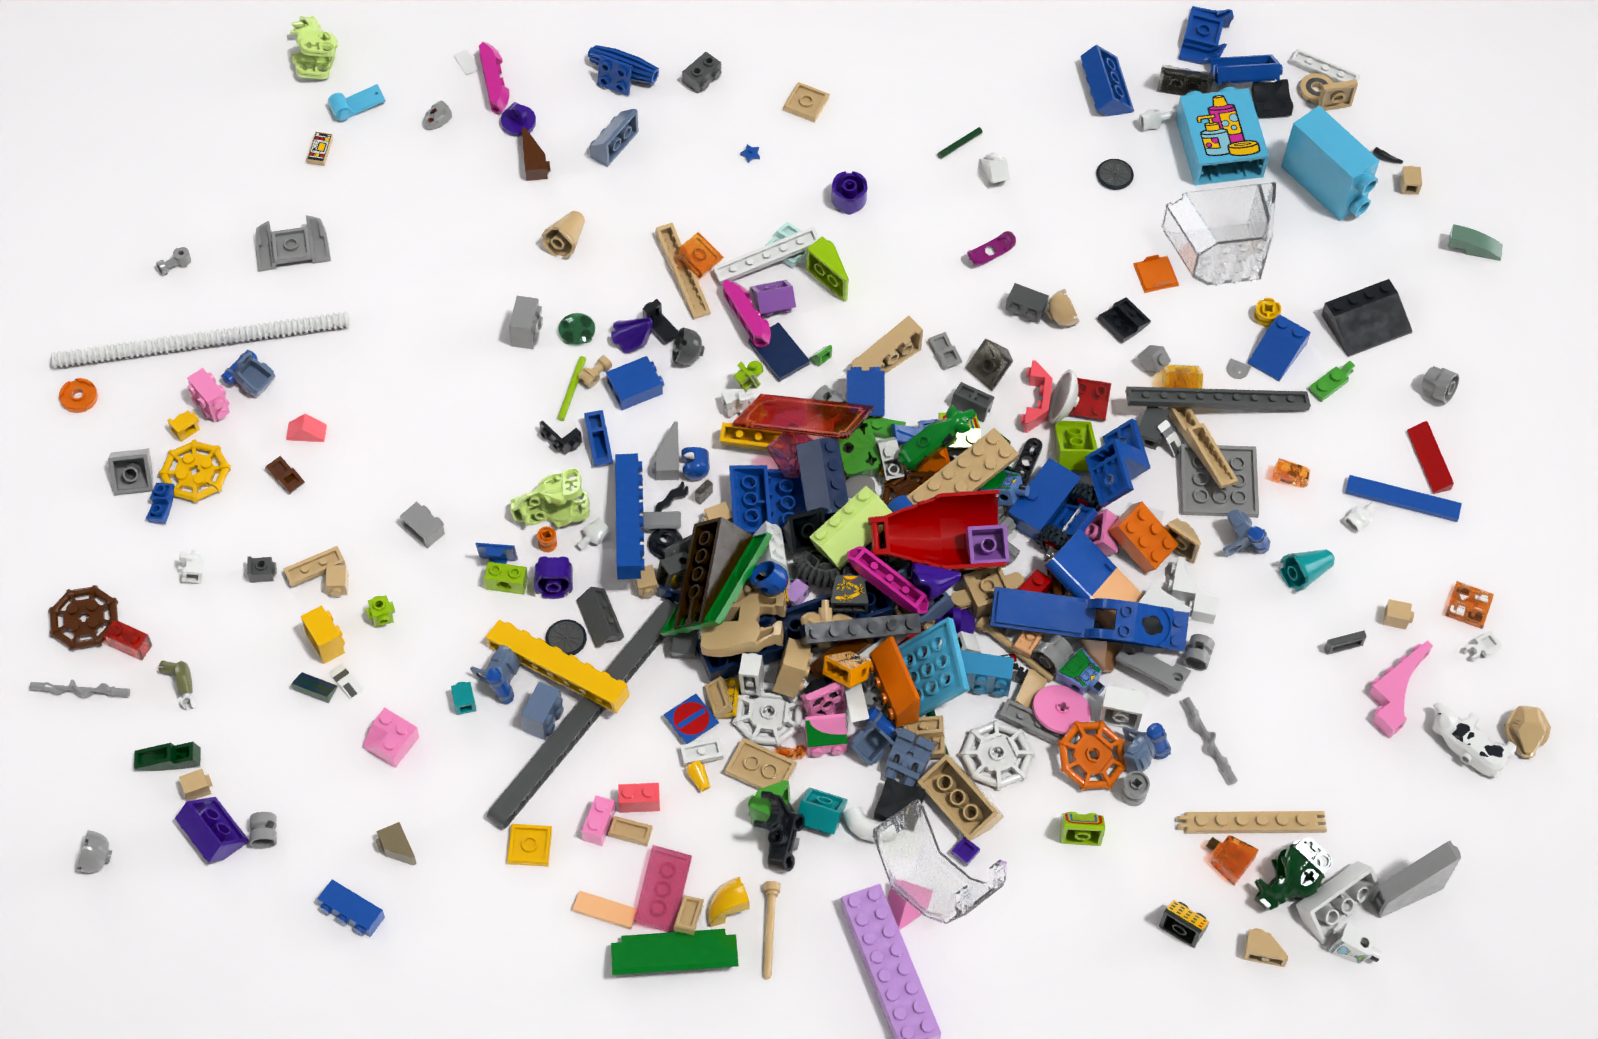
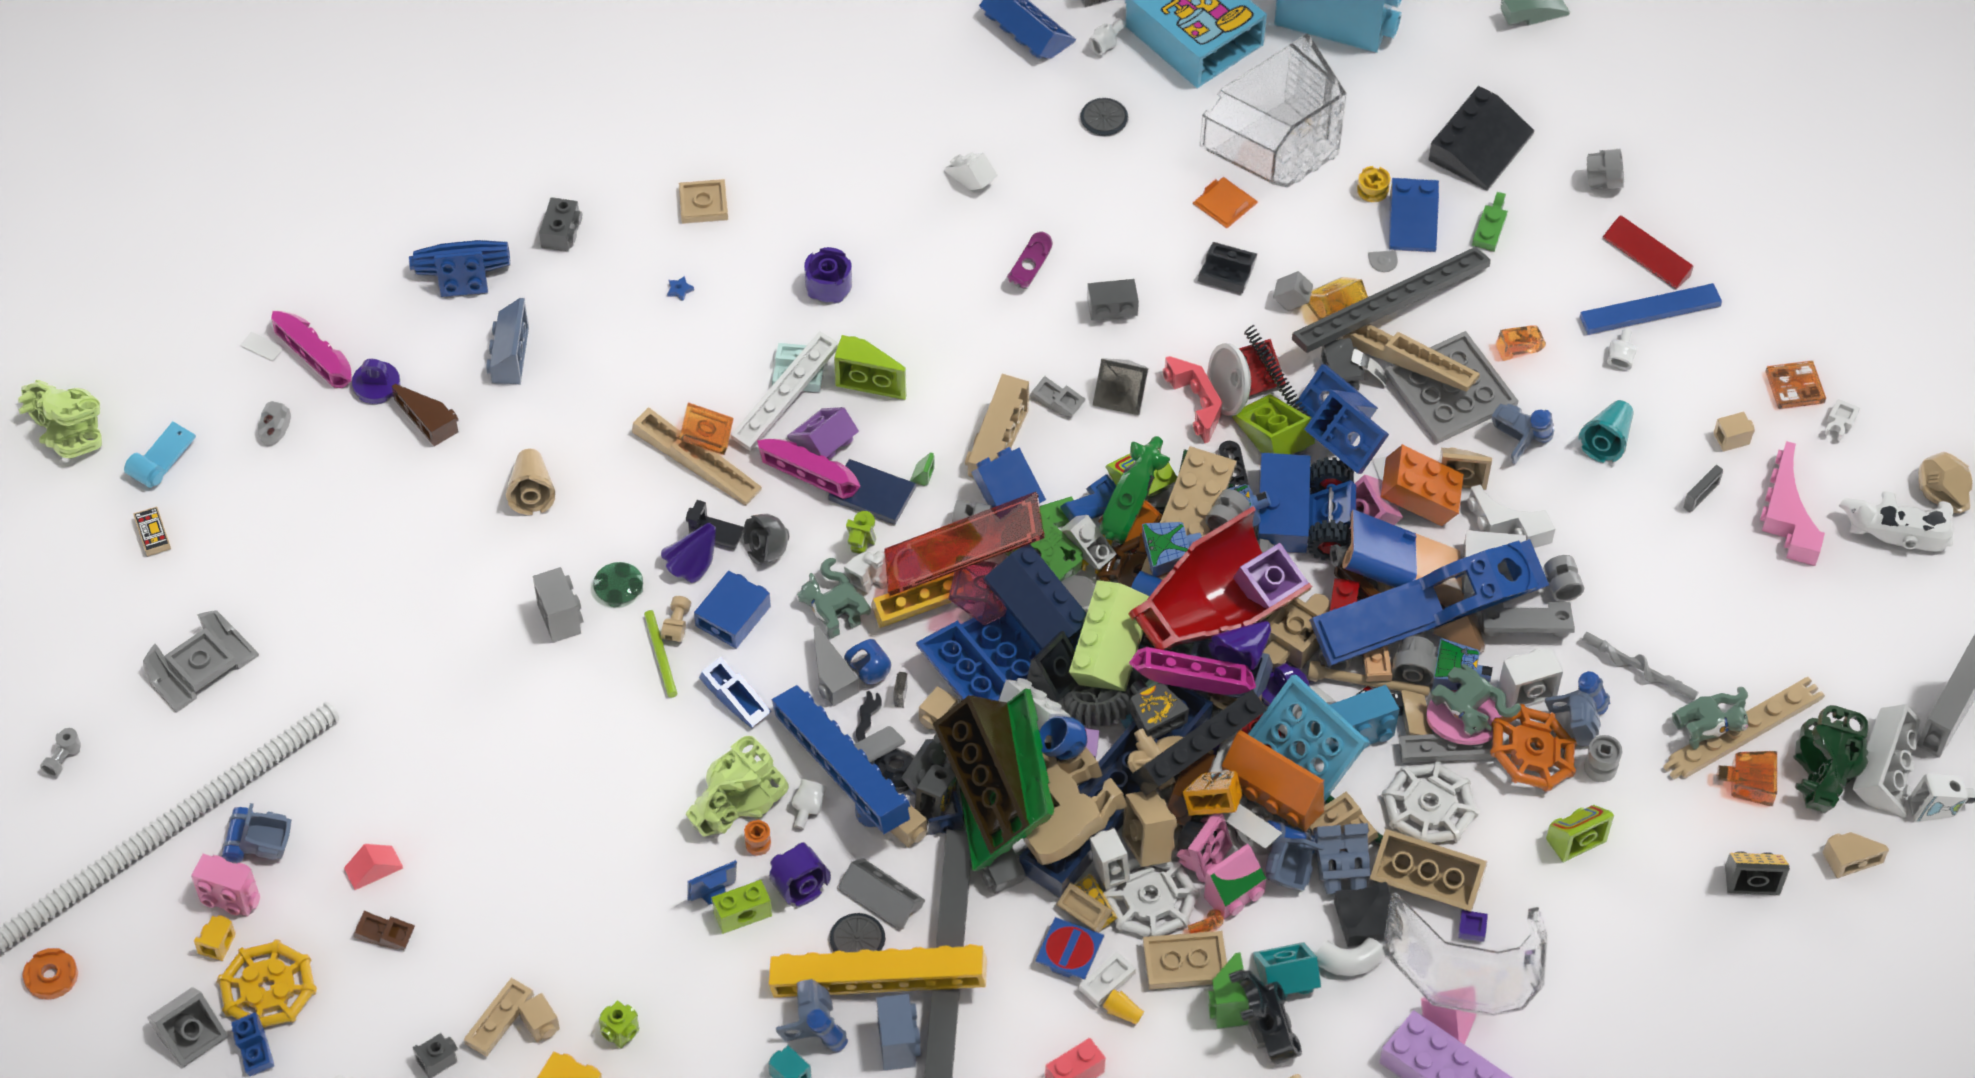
camera: 30 degrees left, 5 degrees down
(422, 524) = (596, 899): light grey piece -> none
(565, 444) = (690, 721): black bracket -> none
(702, 412) = (834, 602): none -> sand green animal
(930, 483) = (1166, 544): none -> torso
(959, 143) = (912, 159): dark green bar -> none
(968, 398) = (1120, 434): dark grey hinge -> none
(990, 481) = (1227, 506): none -> light grey wheel
(1062, 309) = (1157, 286): tan cylinder -> none
(1069, 697) = (1469, 697): none -> sand green animal
(1096, 401) = (1273, 369): none -> black piece
(1229, 800) = (1708, 720): none -> sand green animal

